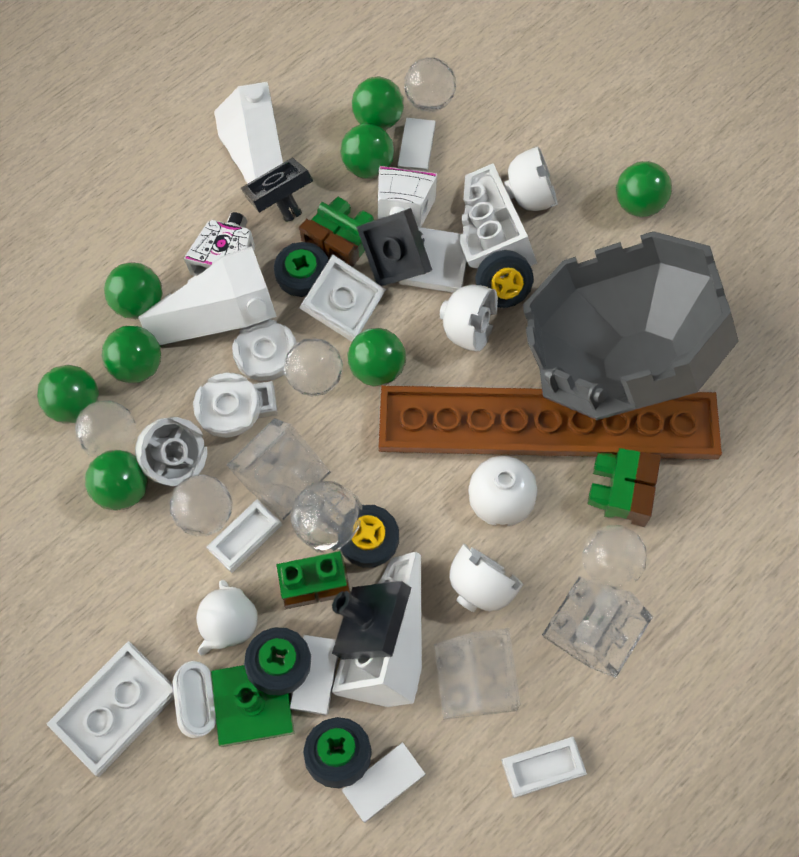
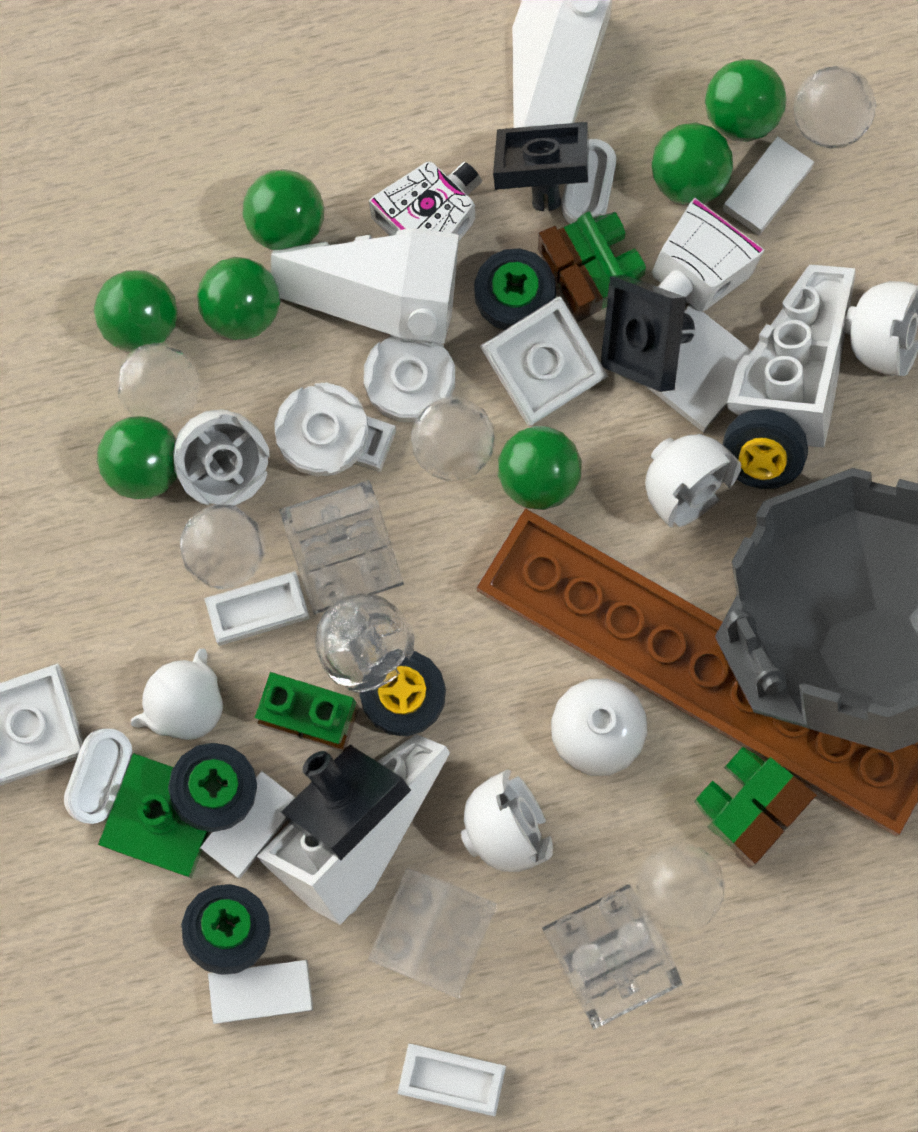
camera: 30 degrees right, 10 degrees up
(312, 194) = (594, 194): none -> white tile

